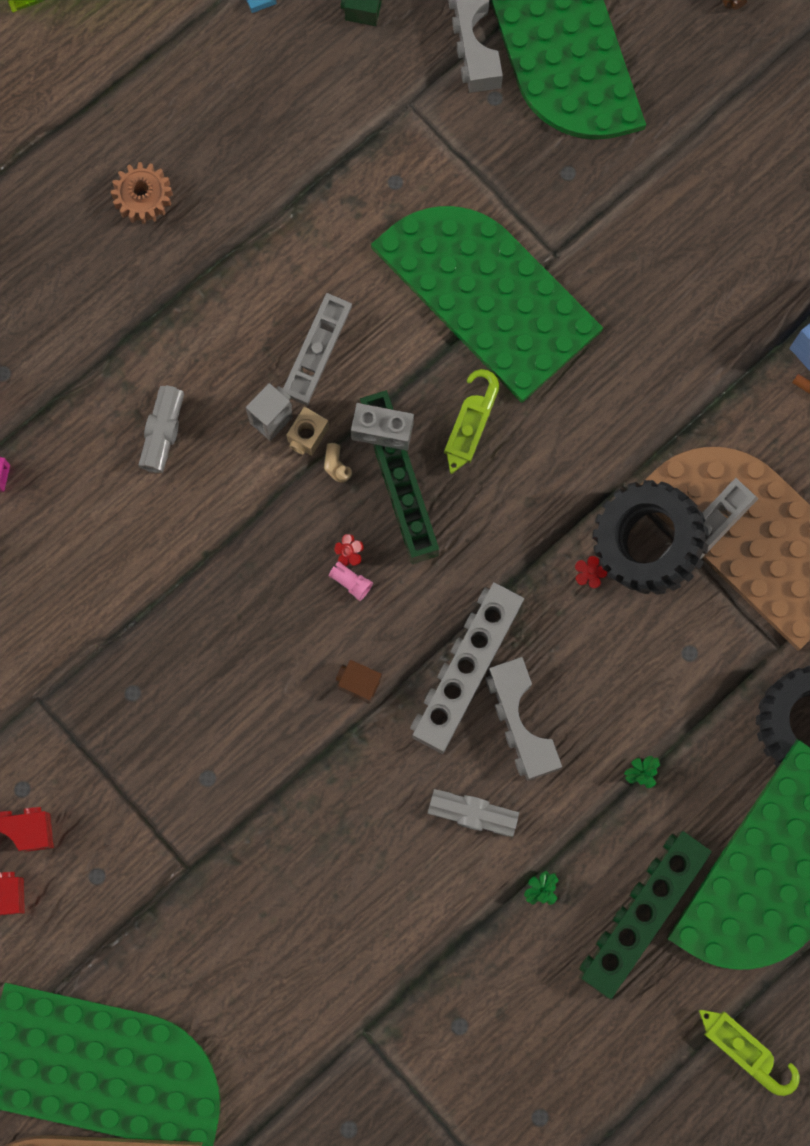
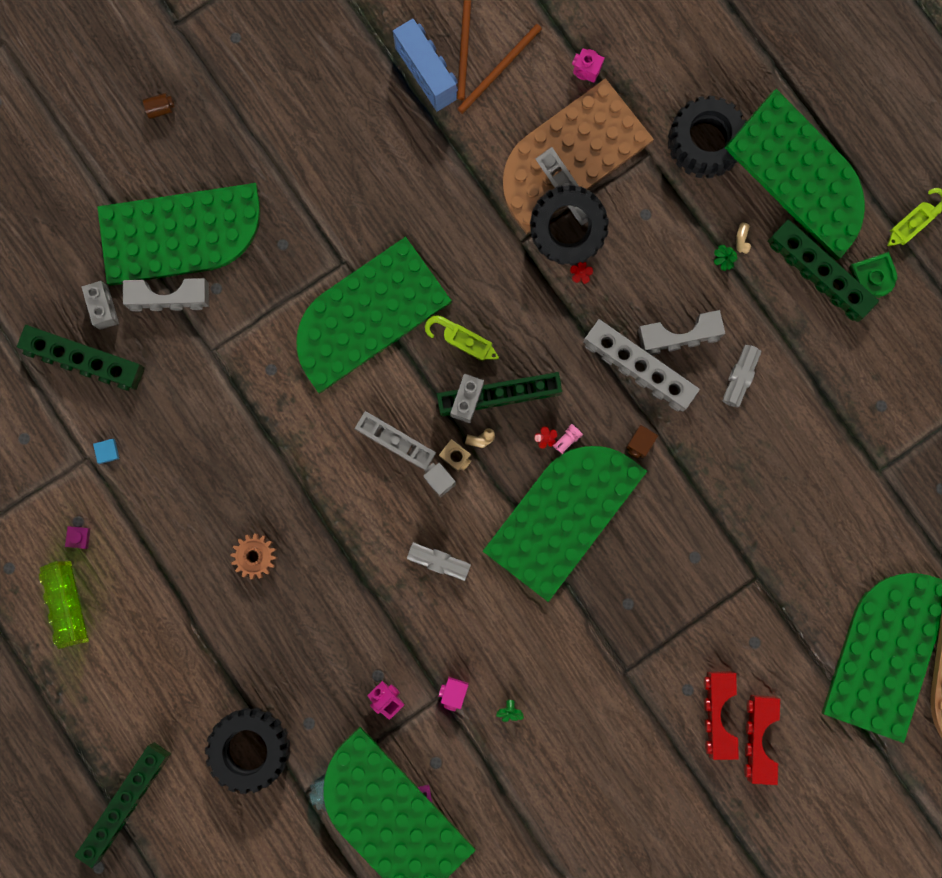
camera: 80 degrees left, 5 degrees up
(244, 589) = (563, 516): none -> green plate
(542, 889) = (798, 337): green plant -> none
(651, 996) = (876, 274): none -> green tile
(675, 790) = (741, 245): none -> tan arm

